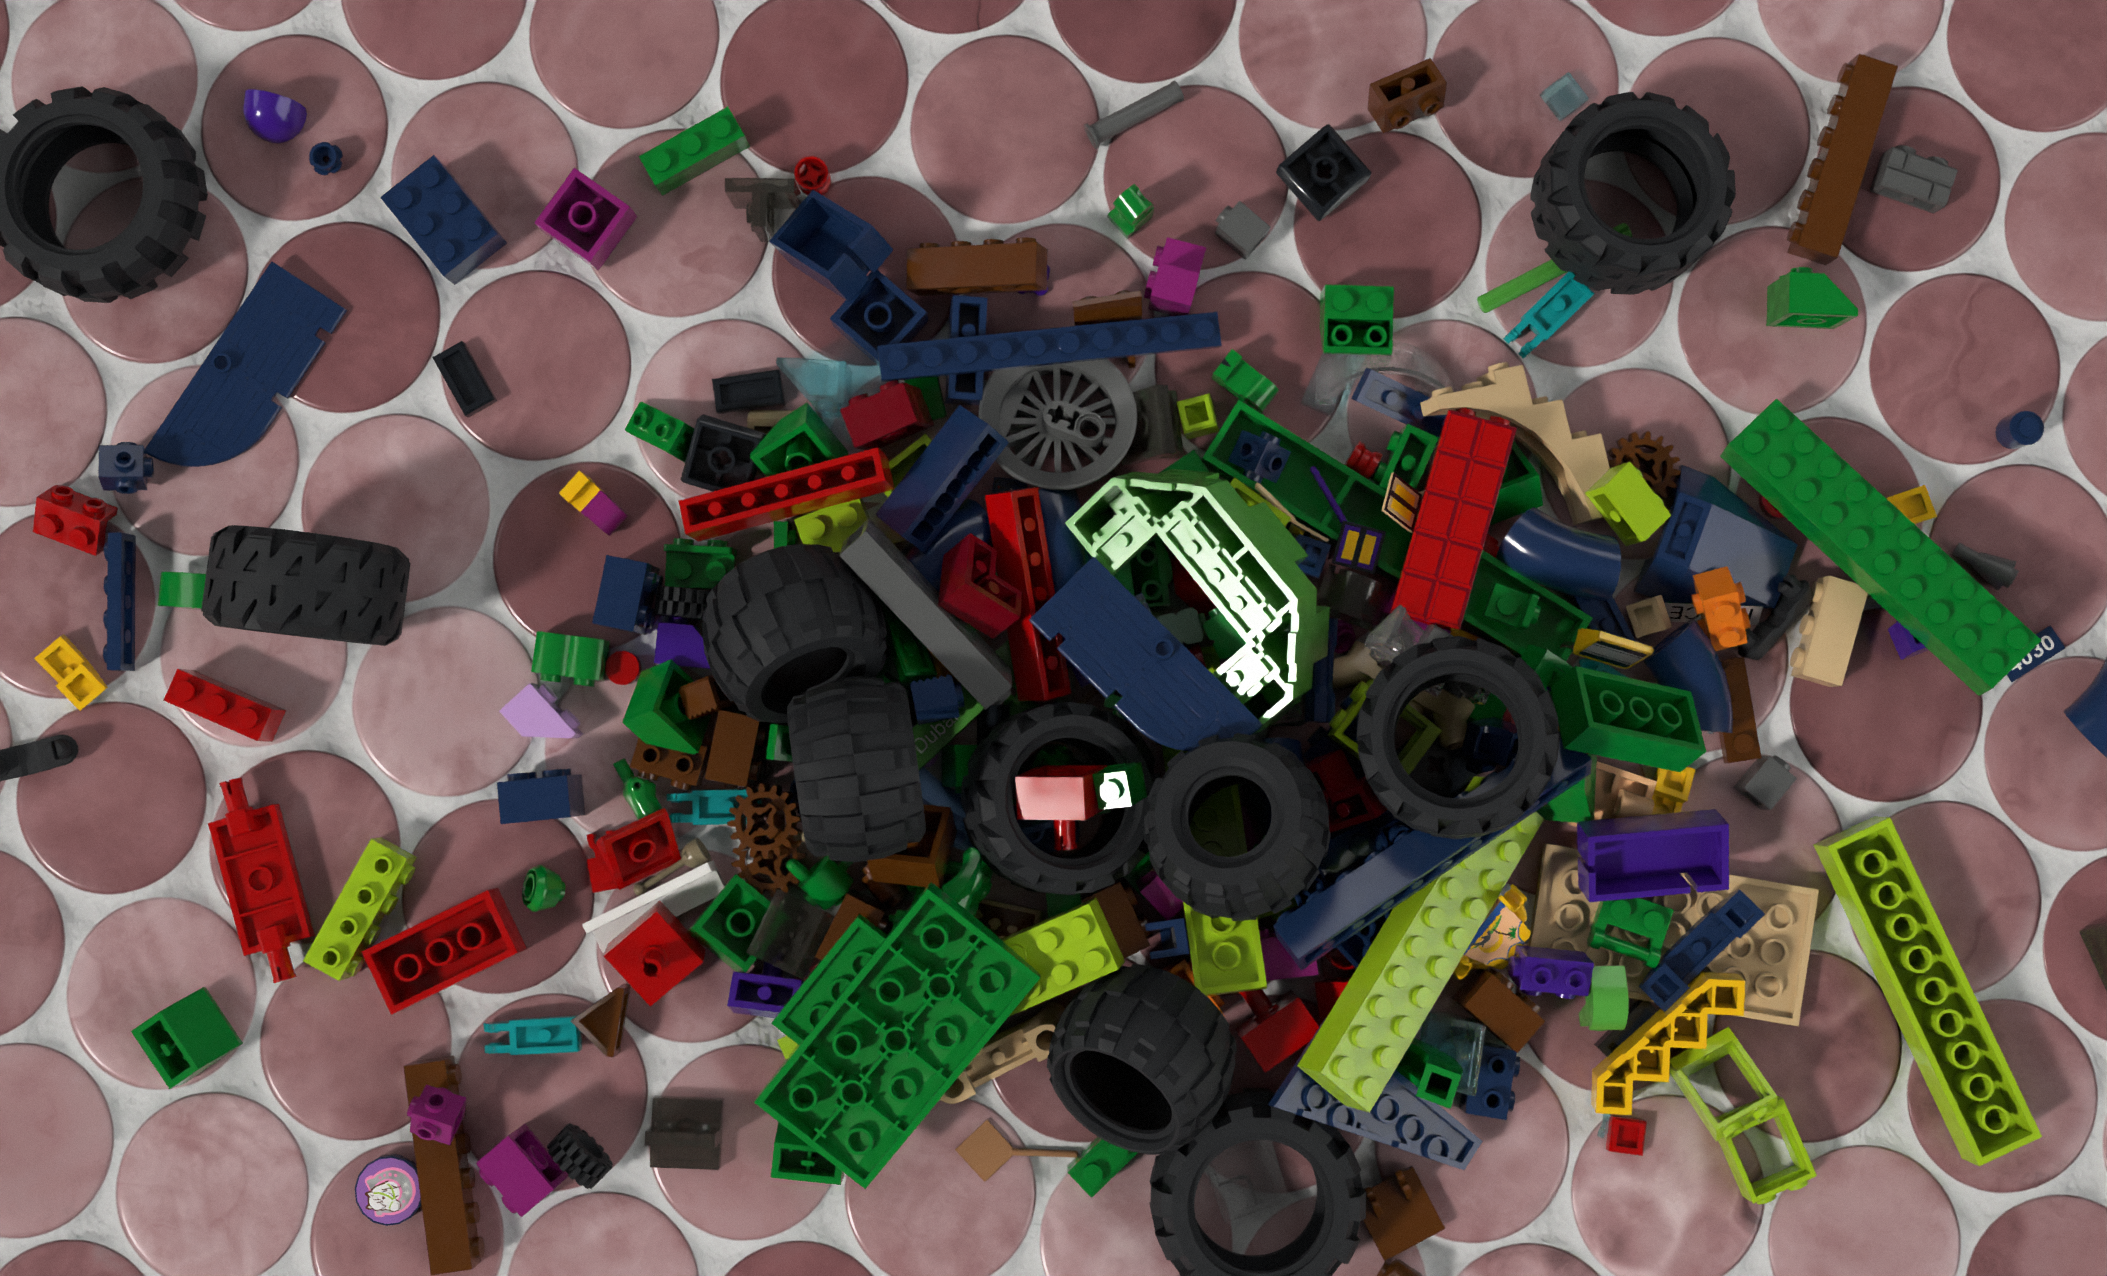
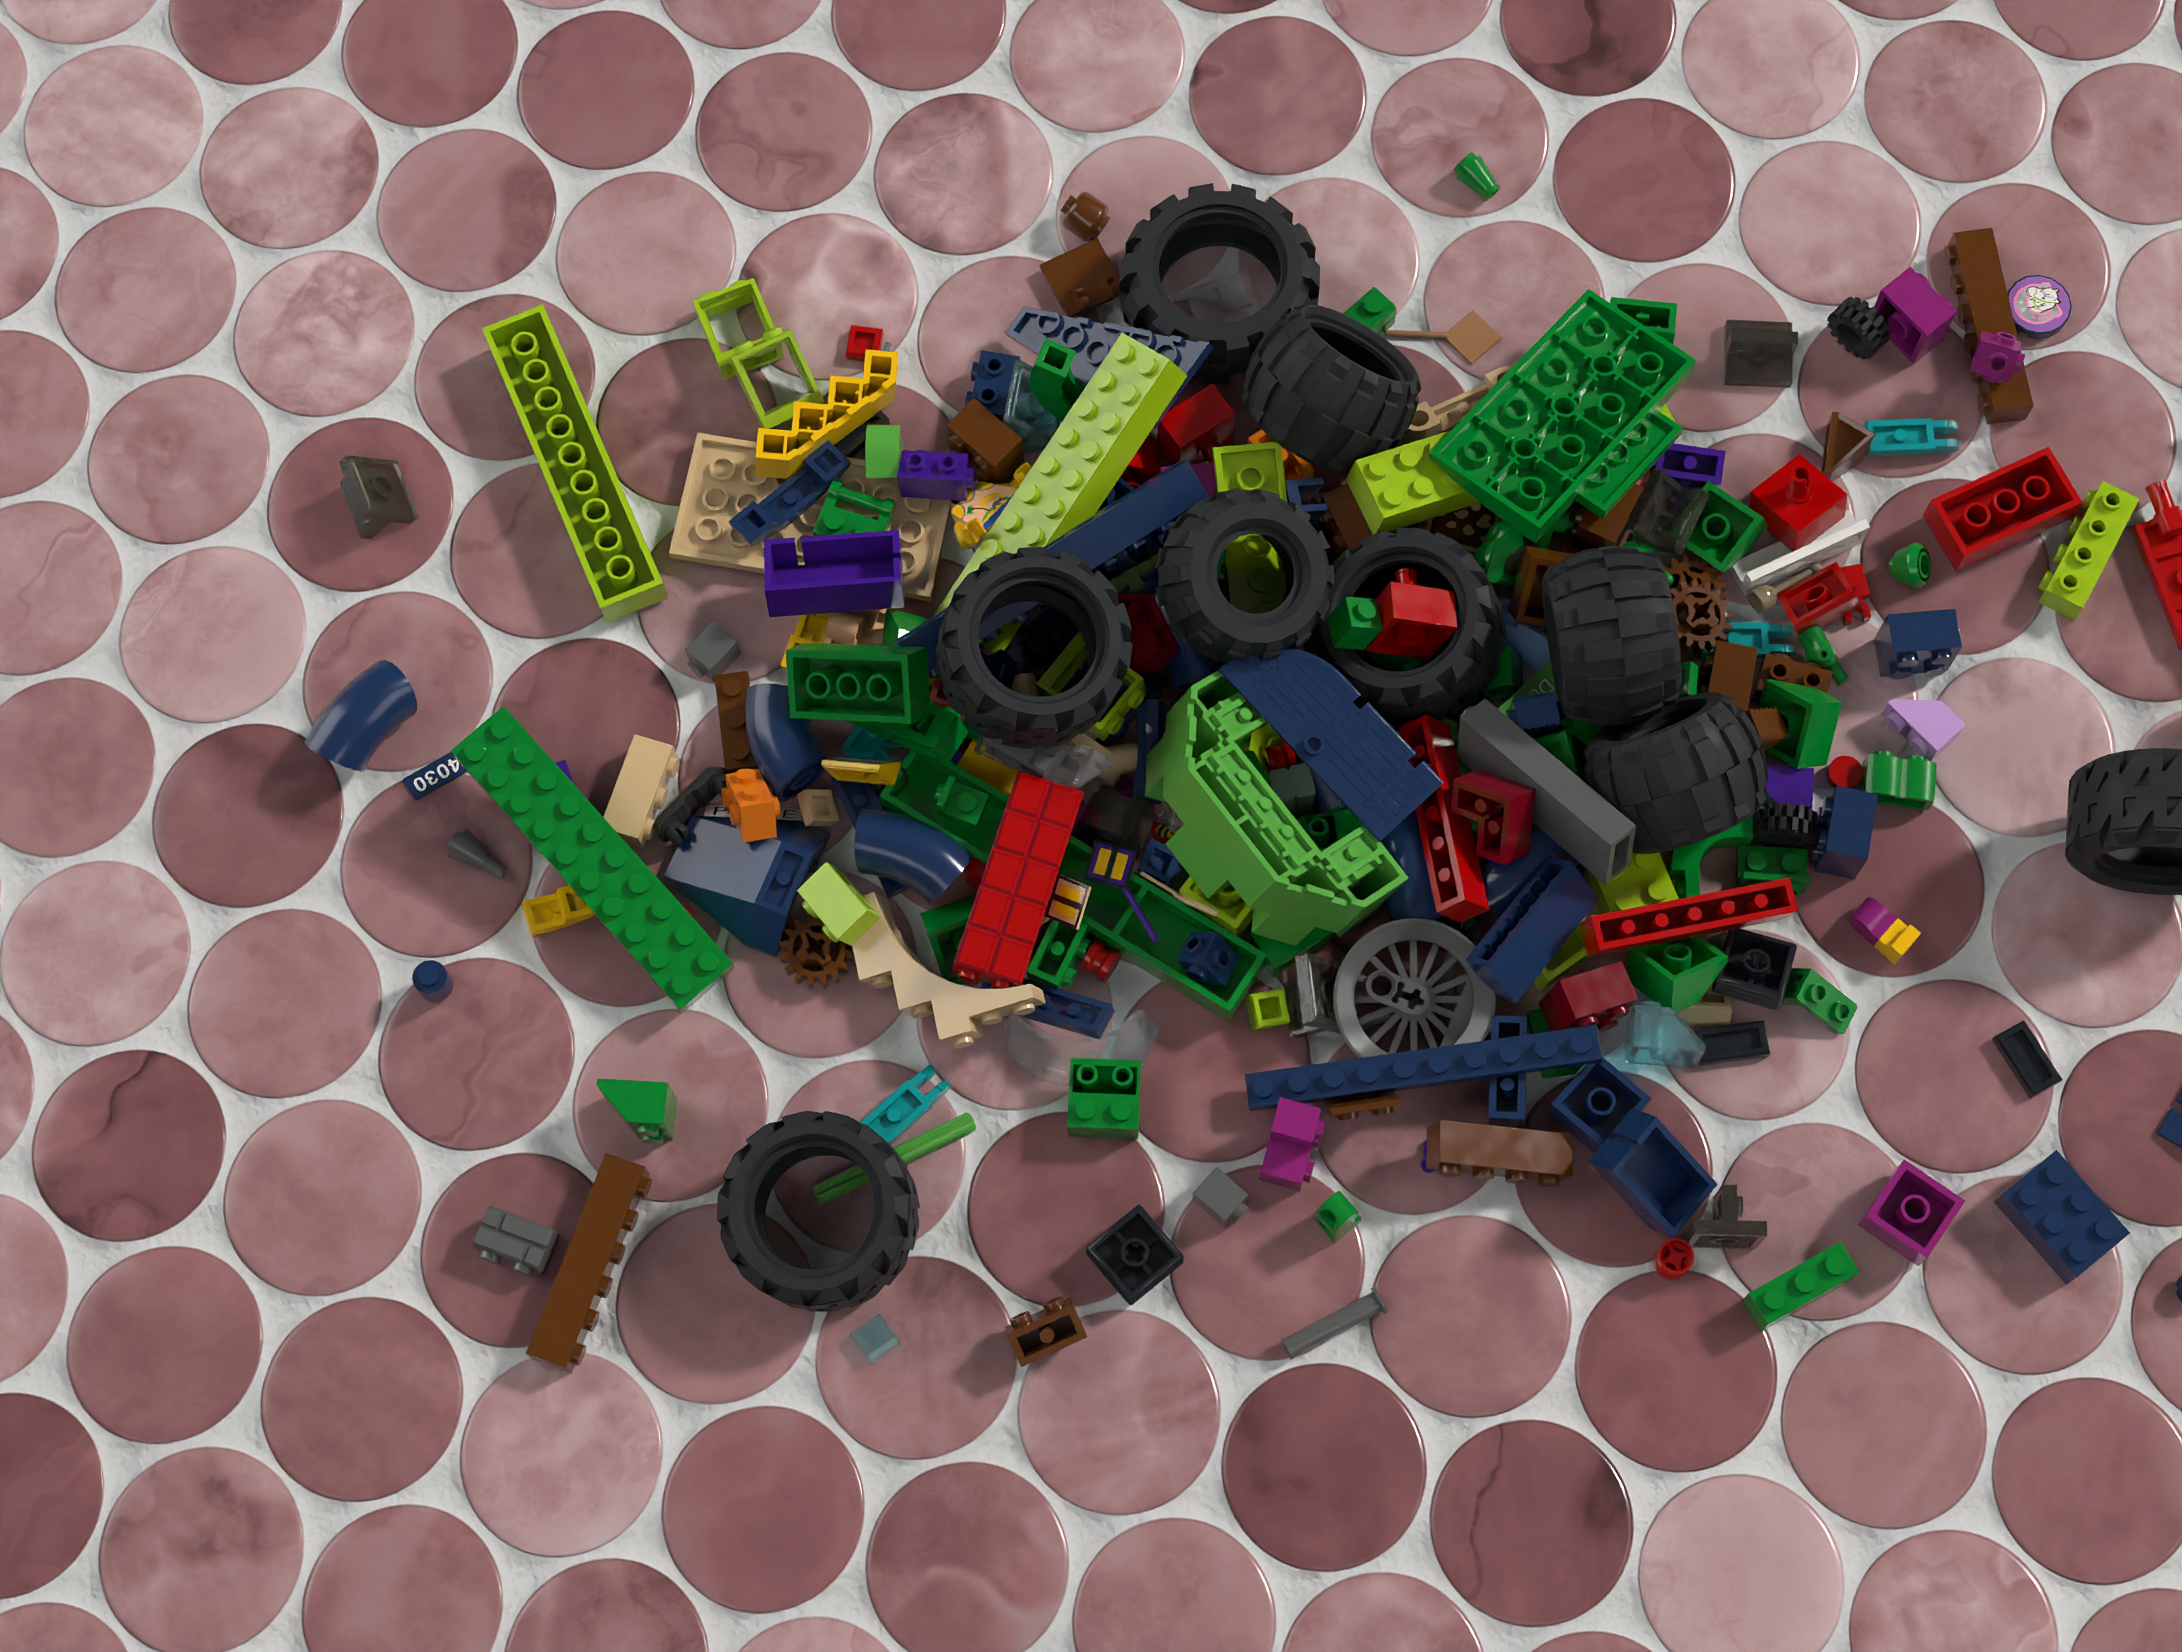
camera: 175 degrees left, 15 degrees down
(1244, 382) = (1219, 1043): green leg -> none

